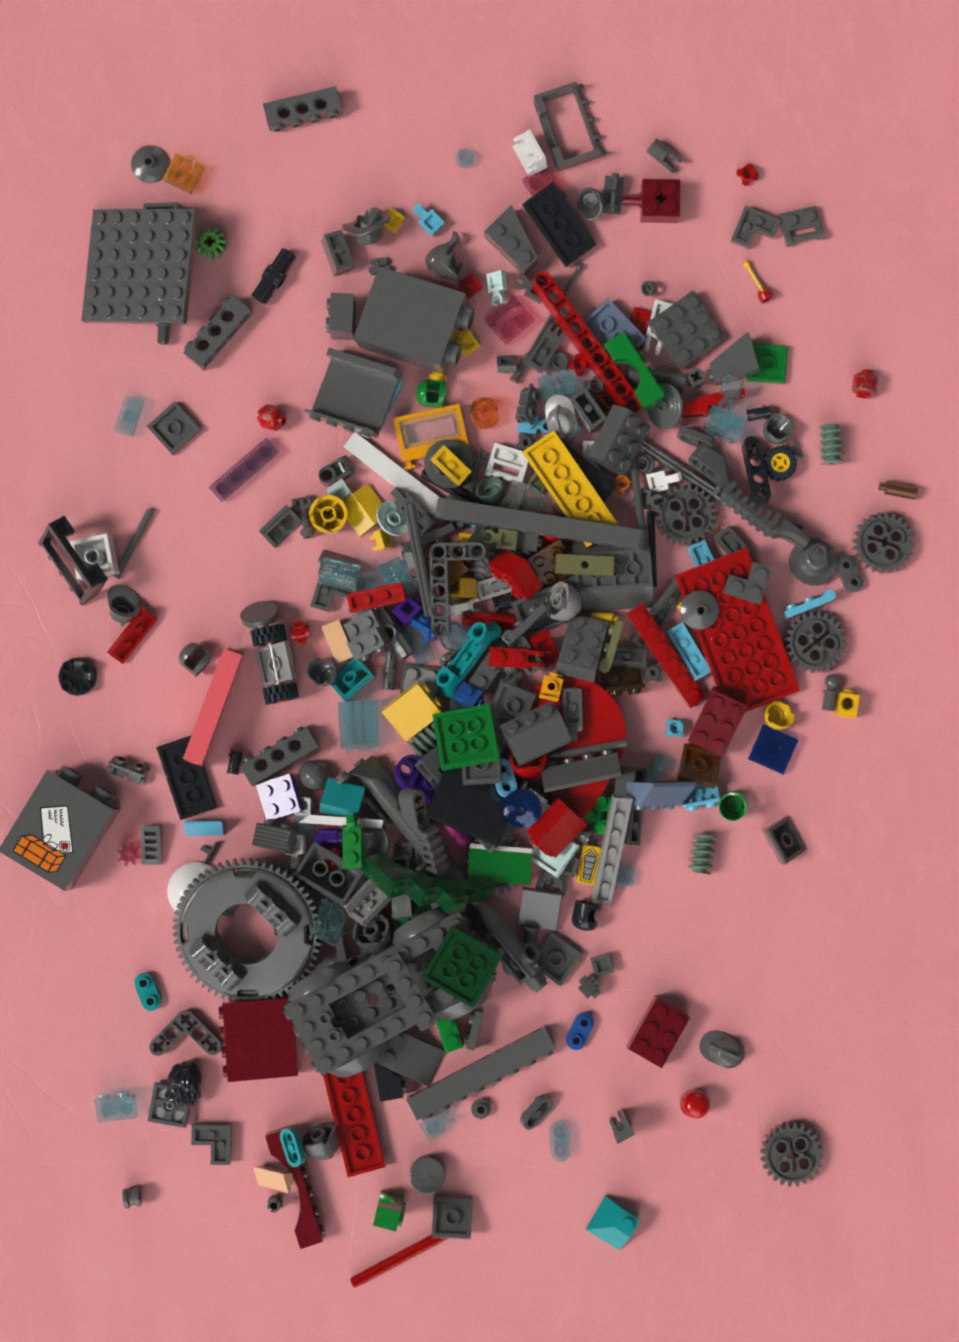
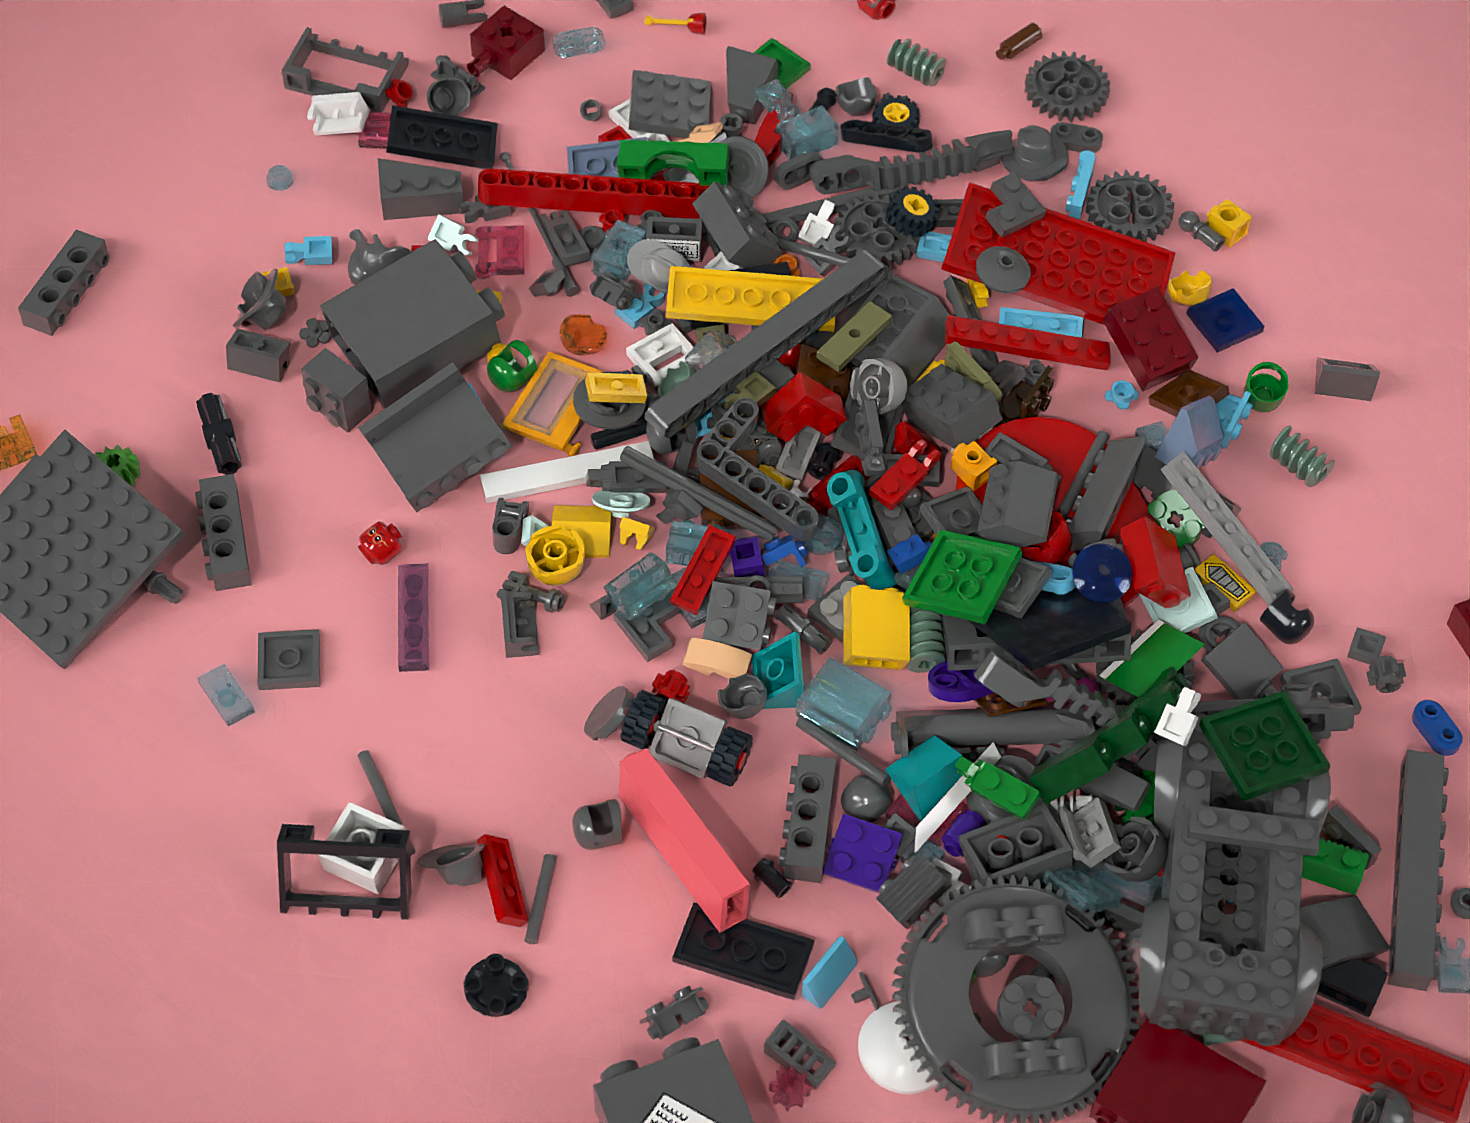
camera: 50 degrees left, 30 degrees down
(140, 659) = (540, 899): none -> dark grey bar
(242, 955) = (1042, 994): none -> dark grey plate
(329, 746) = (843, 751): none -> dark grey bar
(441, 915) = (1177, 721): none -> white plate
(580, 174) = (399, 92): none -> red plate
(667, 367) = (703, 133): none -> light nougat slope
(699, 245) = (578, 42): none -> clear light blue plate
(700, 525) = (912, 211): none -> black wheel

